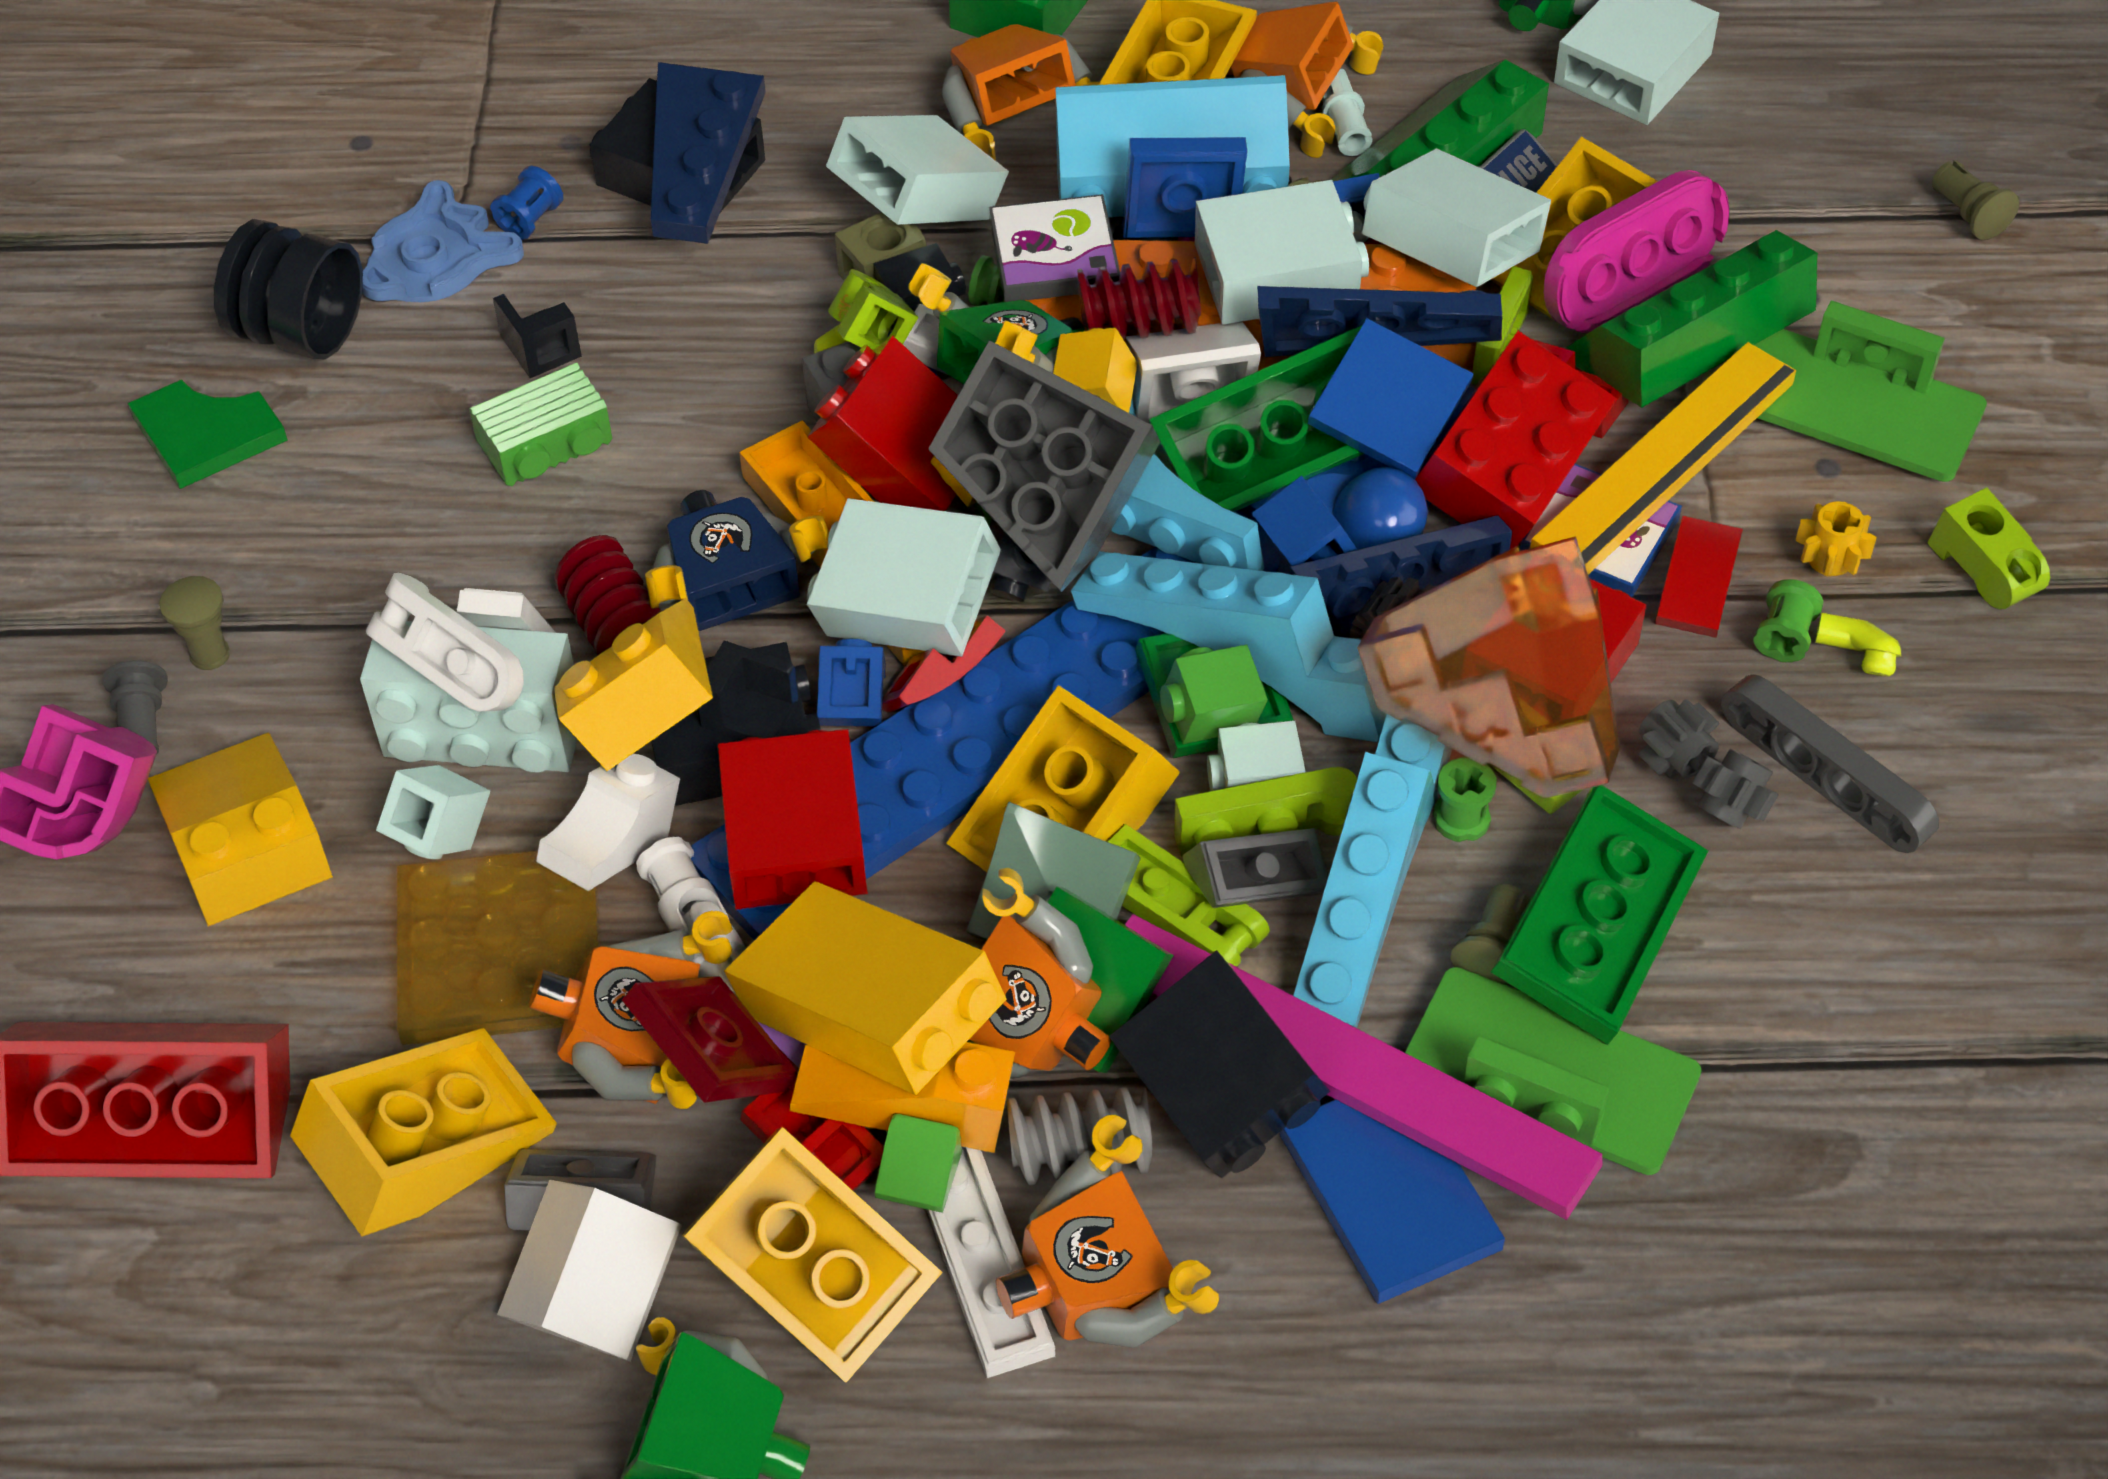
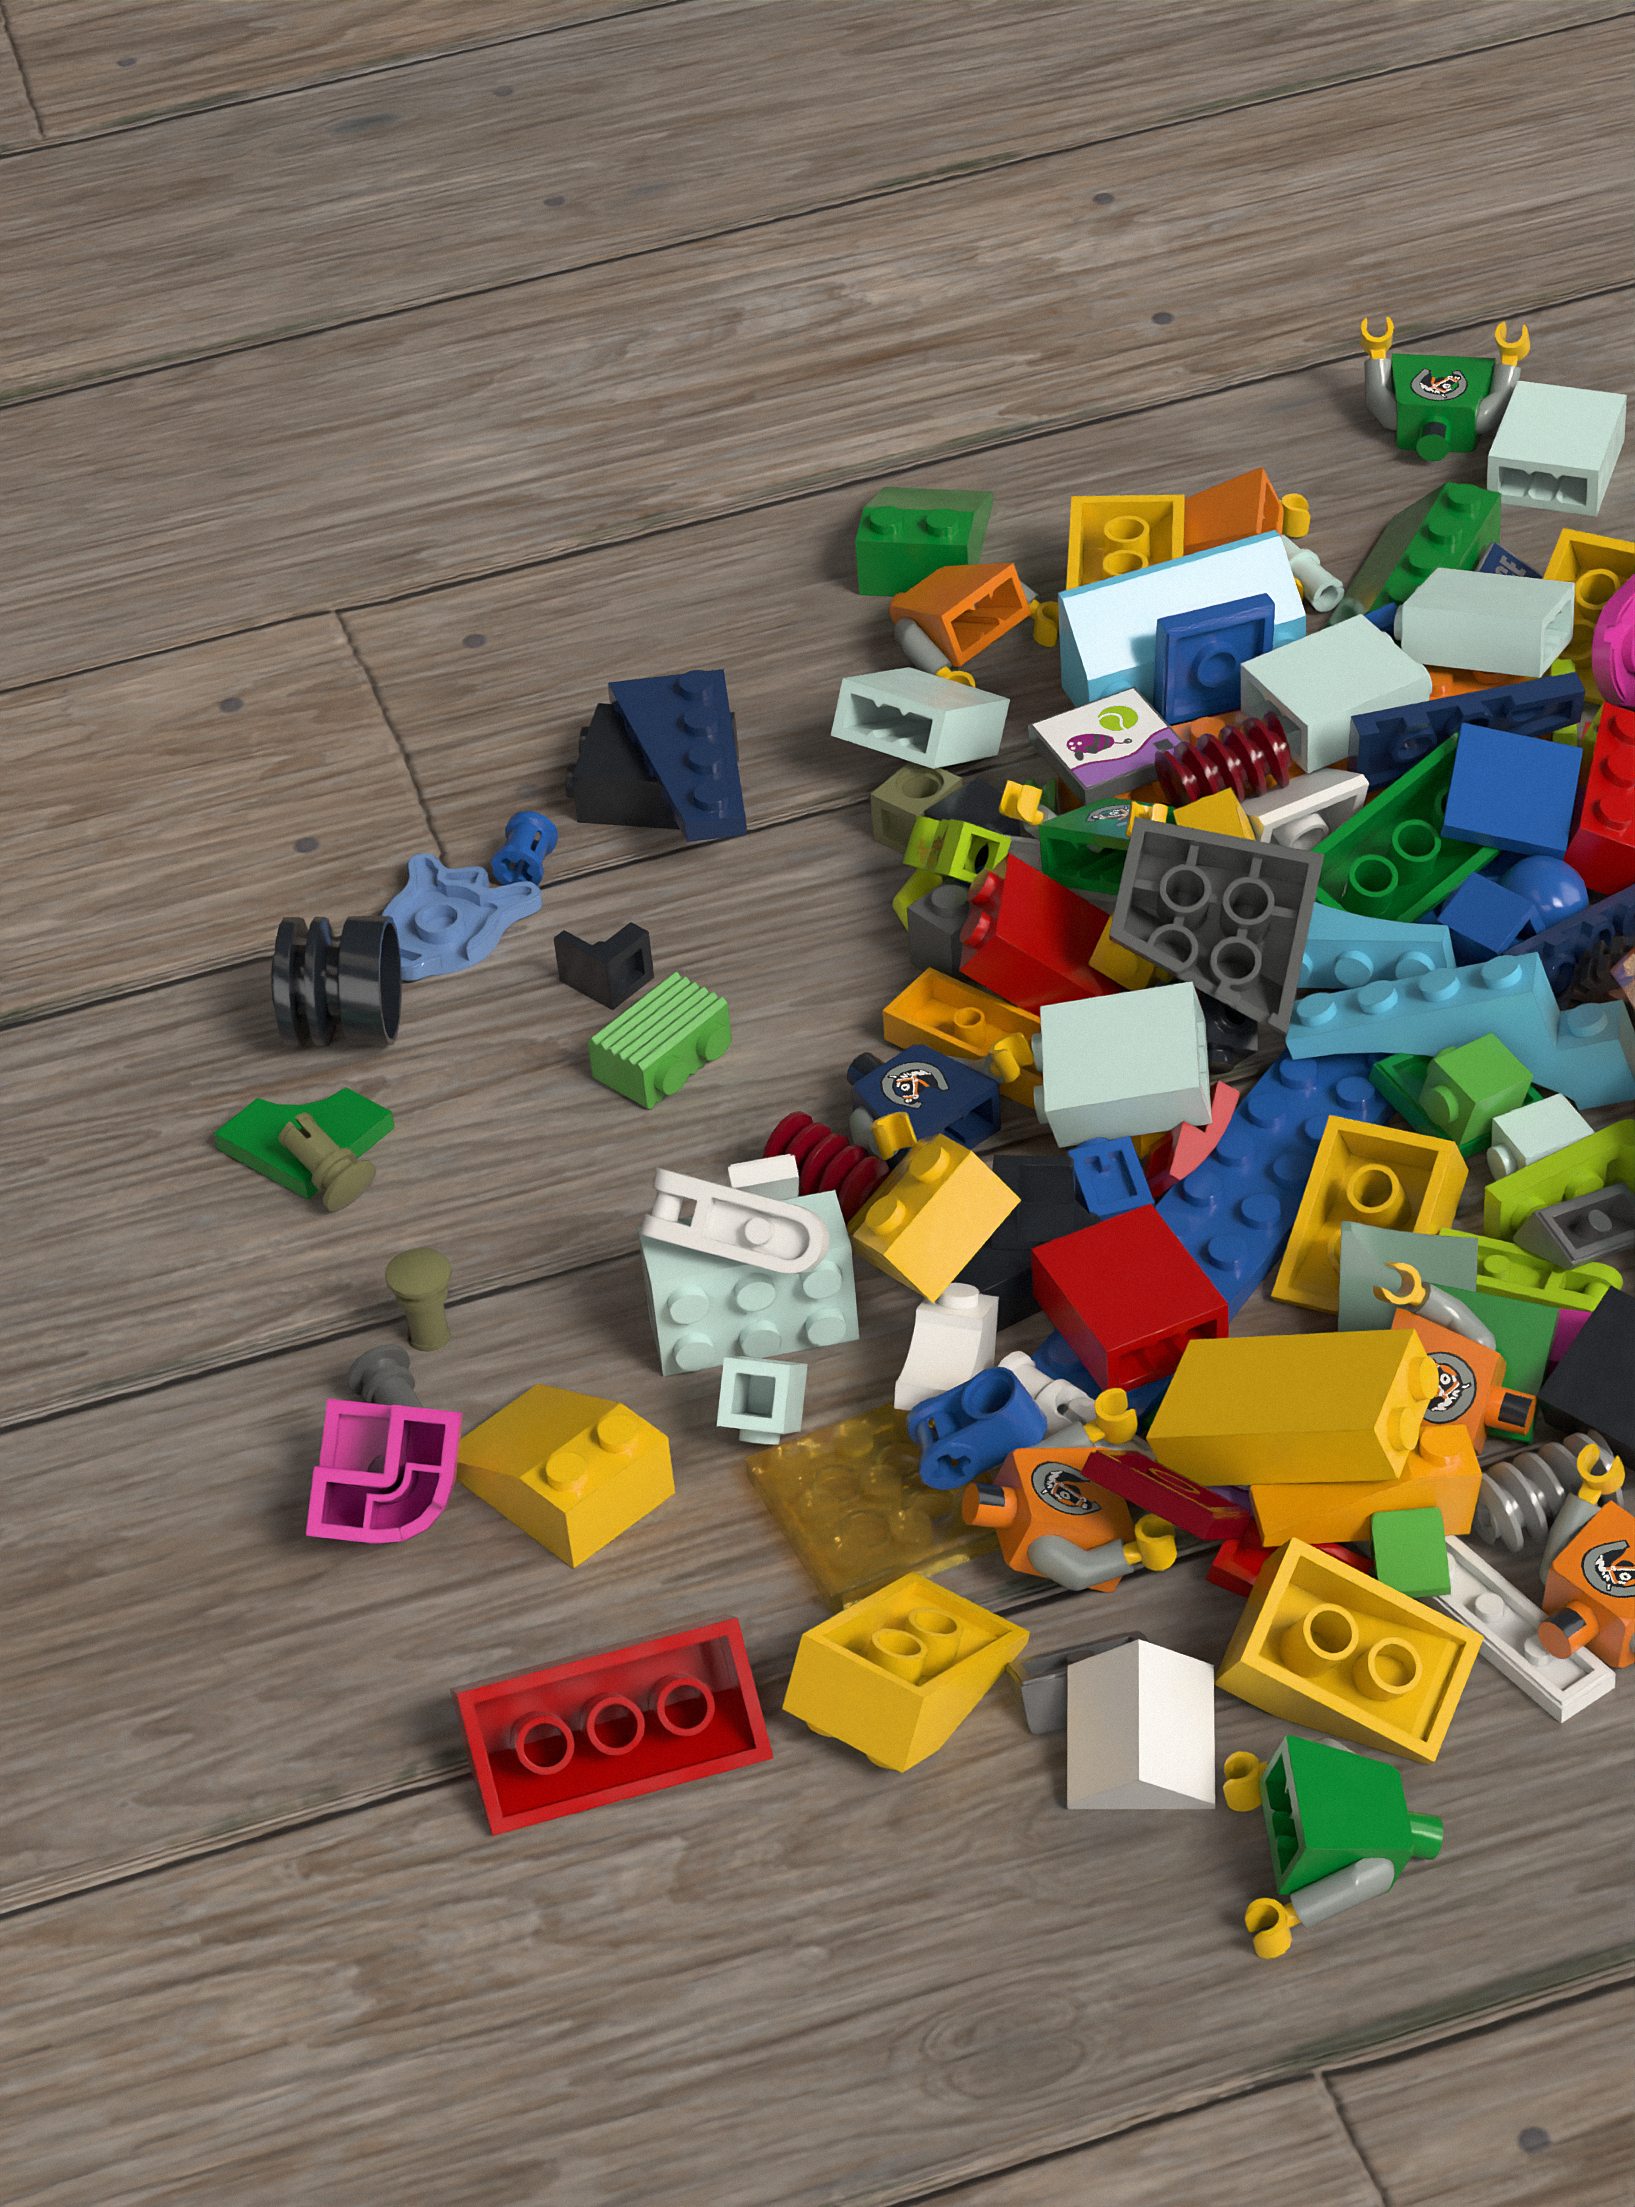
camera: 15 degrees left, 10 degrees down
(198, 468) = (331, 1168): none -> olive pin
(584, 910) = (975, 1425): none -> blue piece

